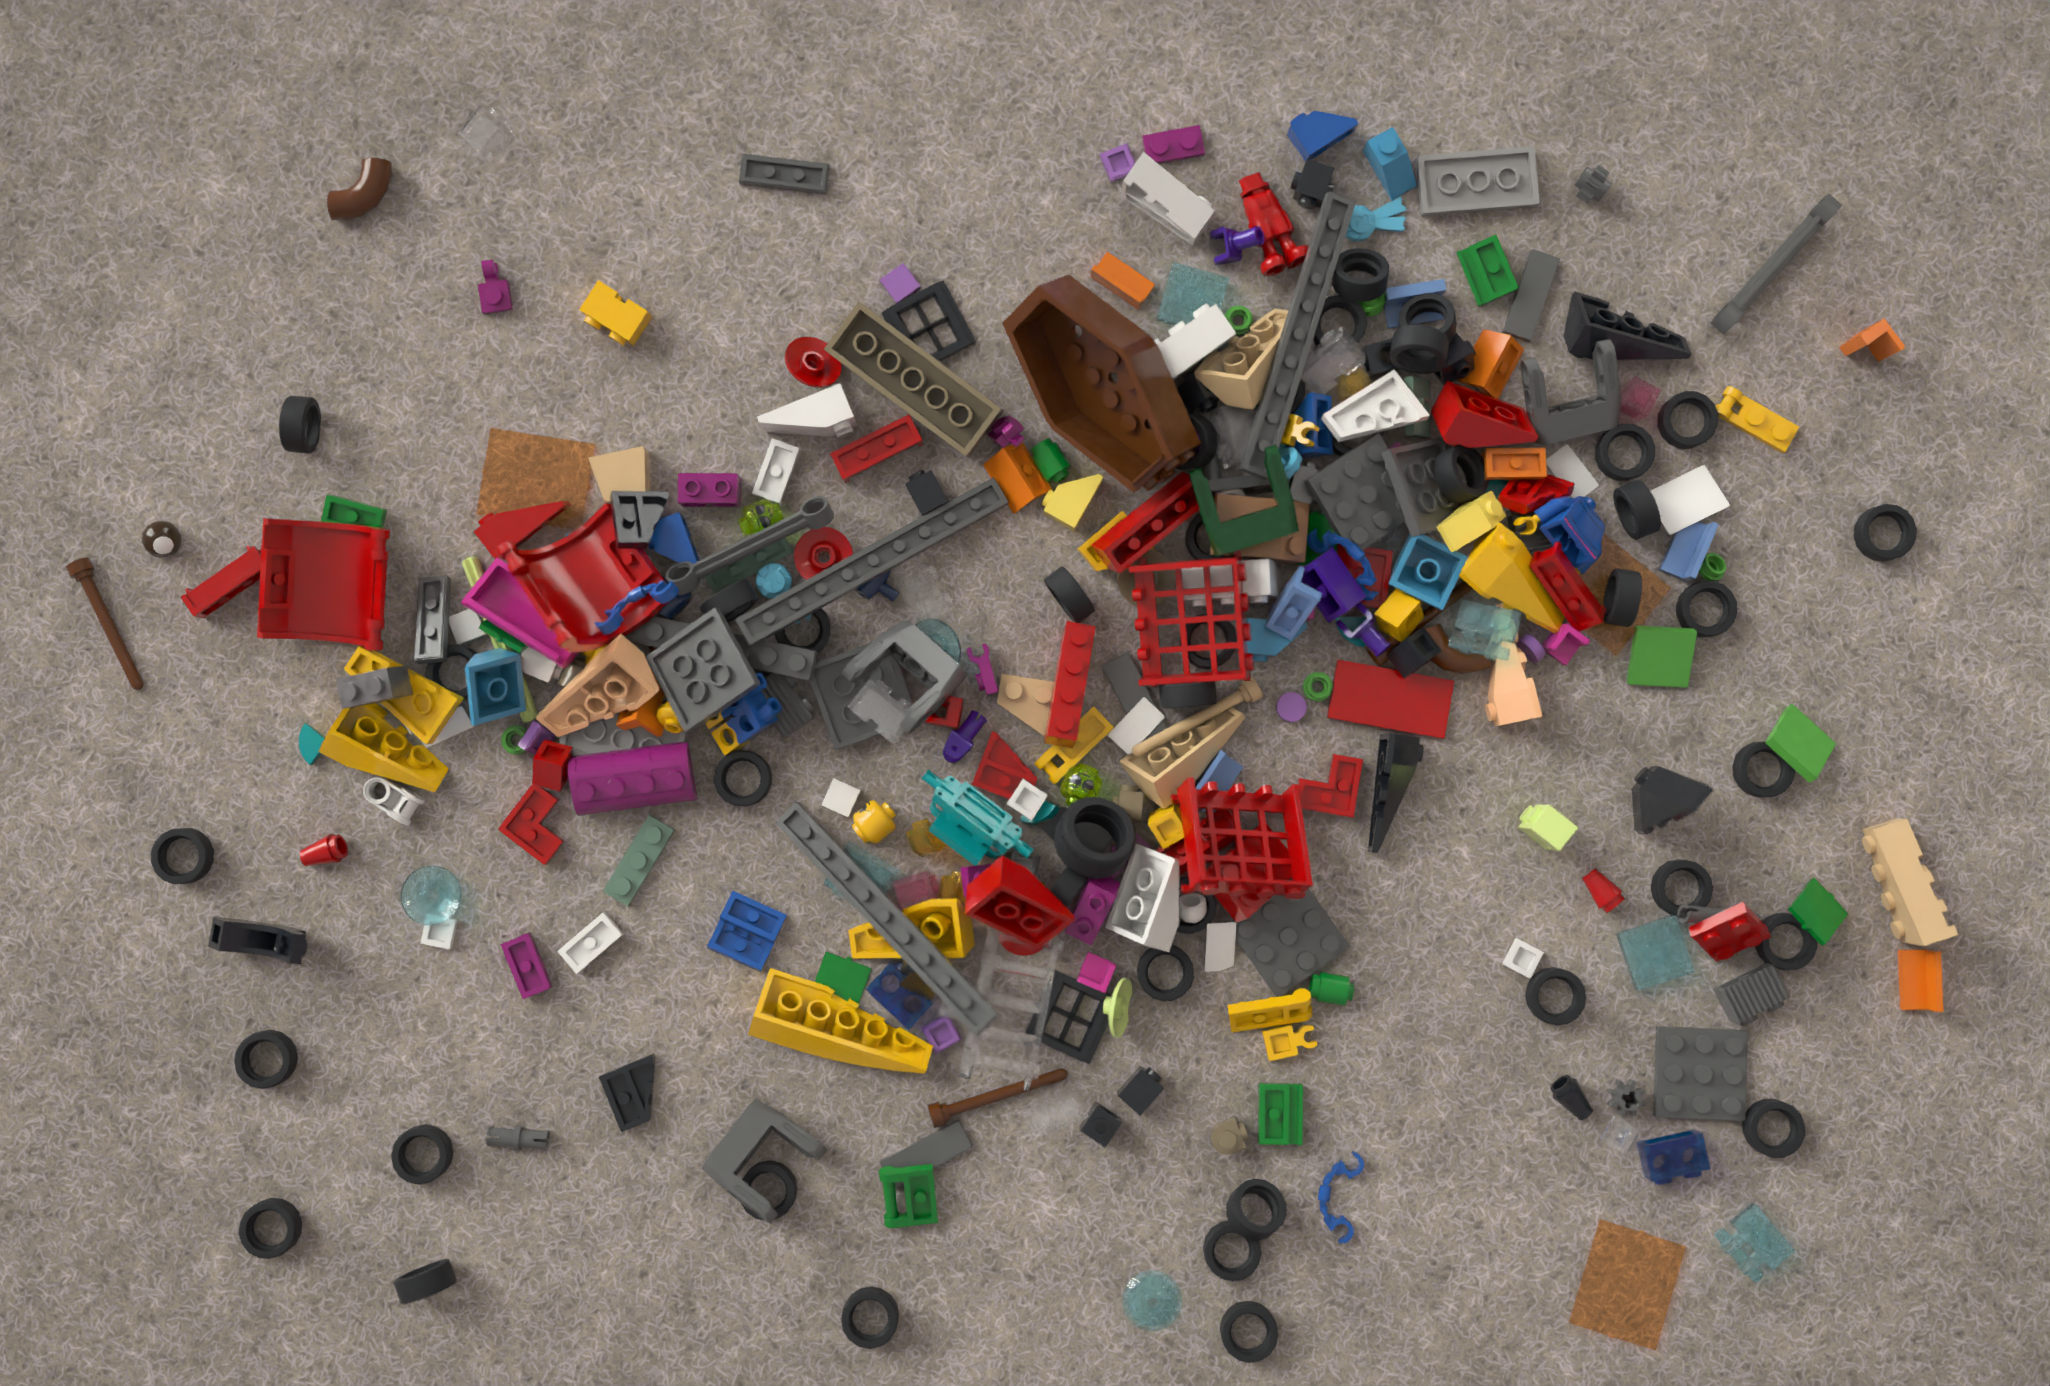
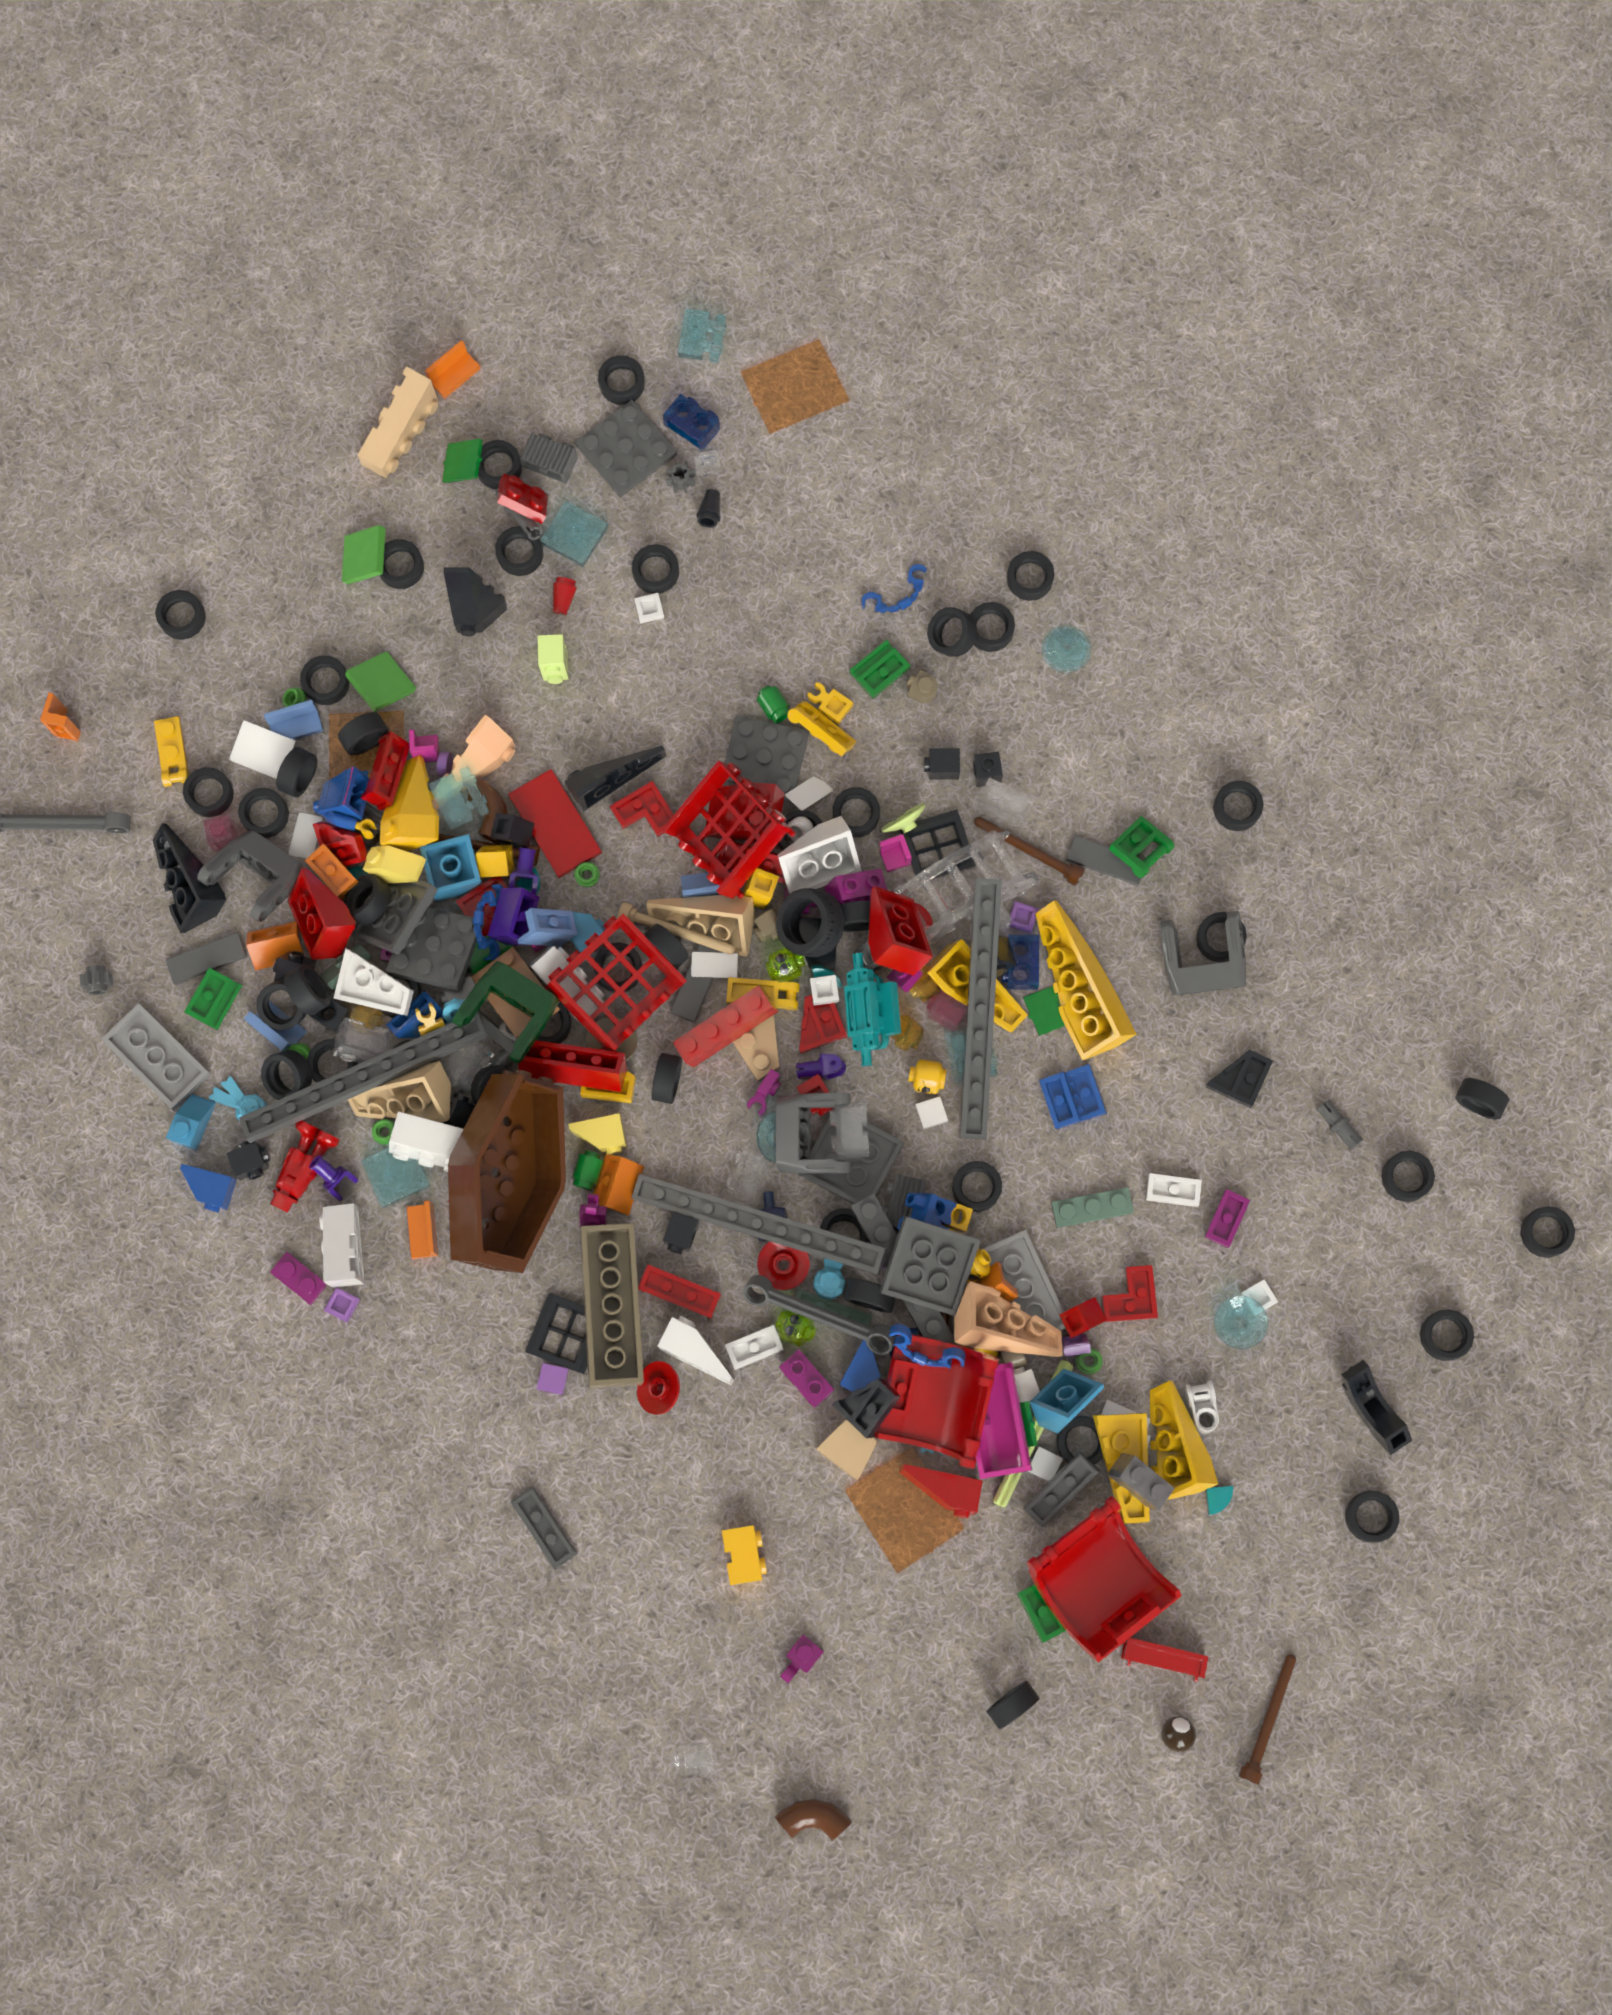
camera: 130 degrees left, 10 degrees down
(325, 851) = (1279, 1421): red cone -> none
(631, 778) = (1042, 1256): magenta container -> none
(1291, 707) = (614, 880): medium lavender tile -> none

